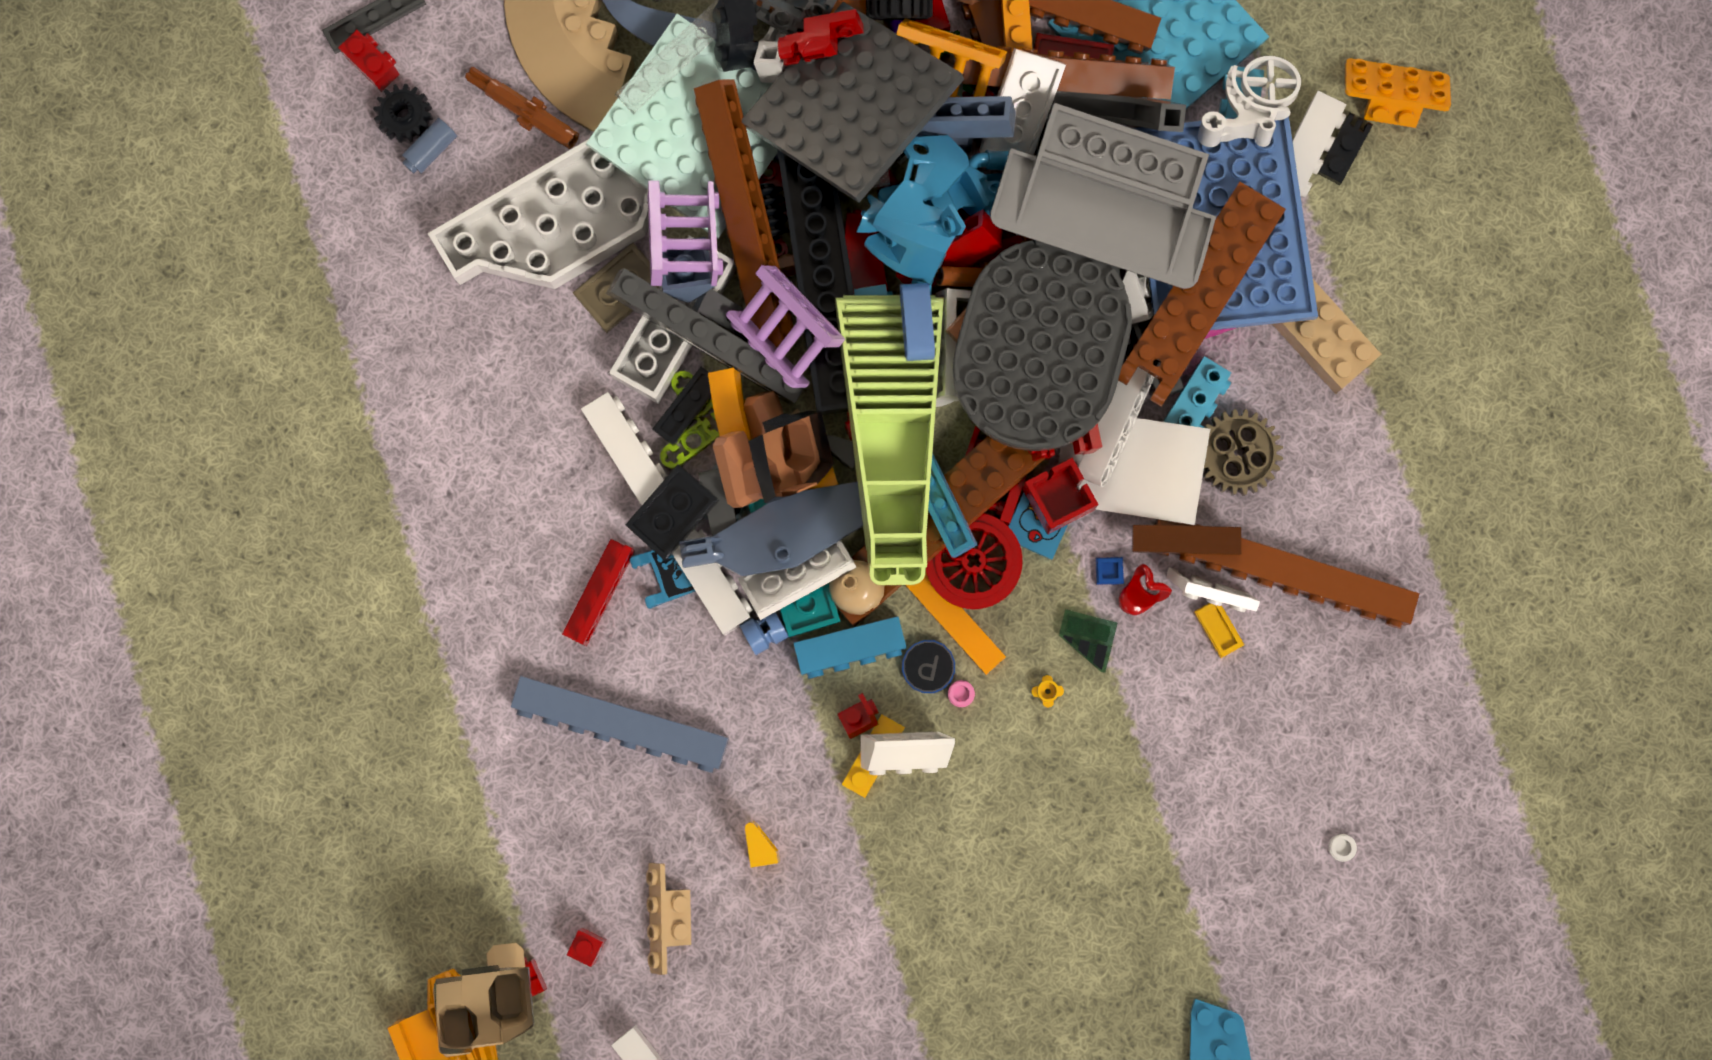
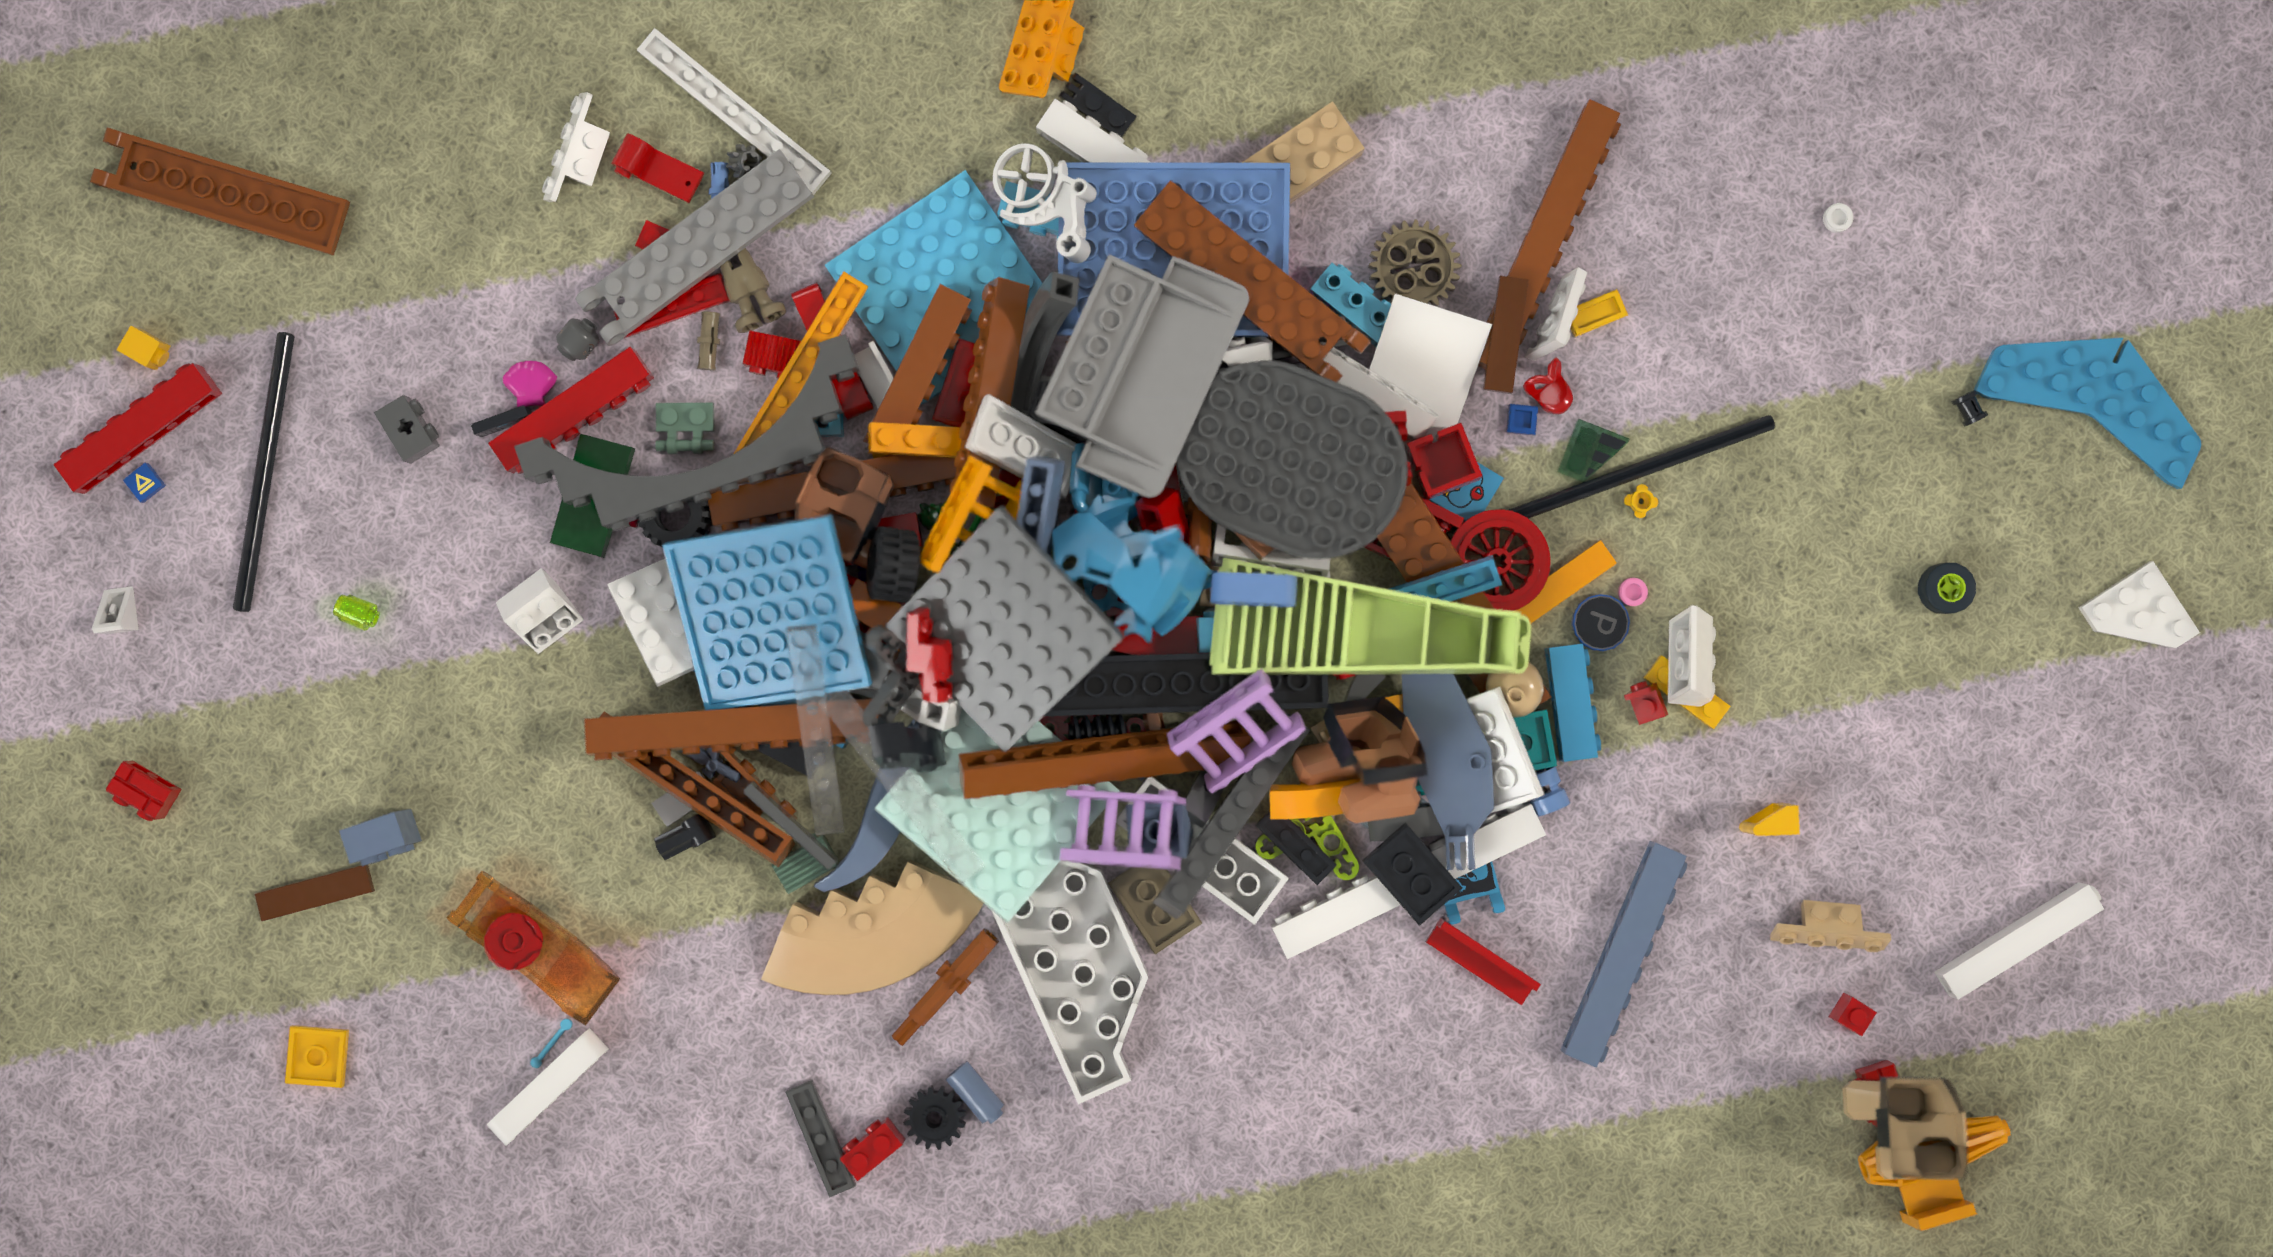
camera: 85 degrees left, 5 degrees up
(1011, 992) = (1958, 586): none -> black wheel
(1079, 692) = (1646, 467): none -> black axle
(1178, 994) = (1969, 408): none -> black bush

